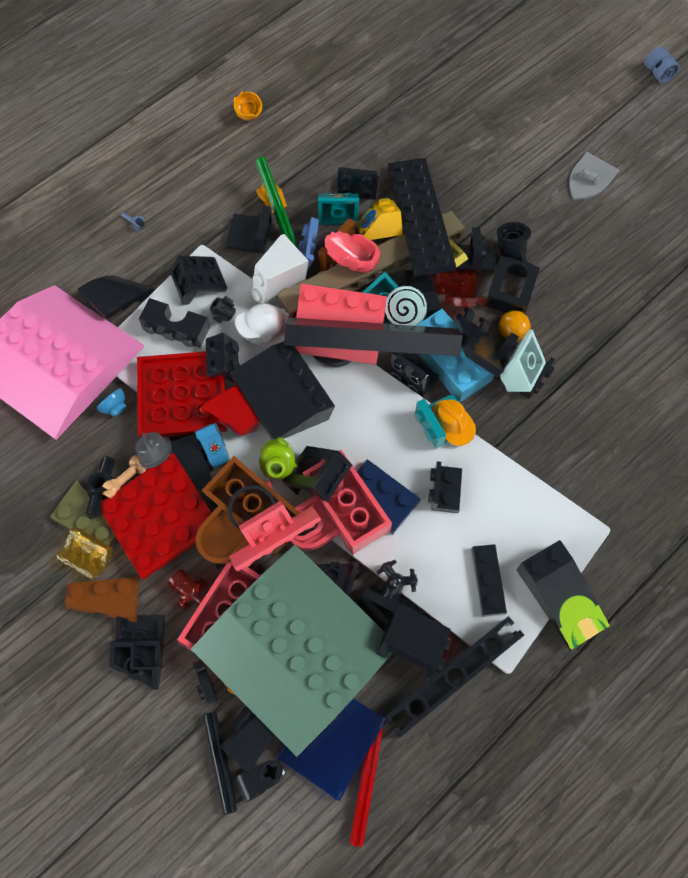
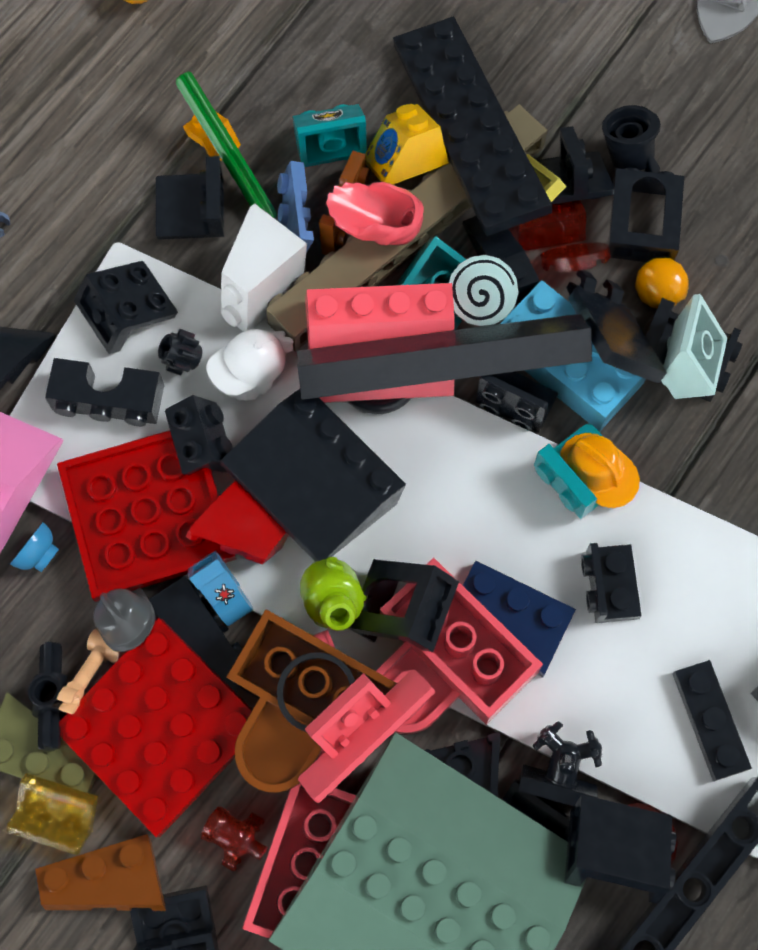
camera: 10 degrees left, 5 degrees up
(358, 182) = (352, 85): black bracket -> none

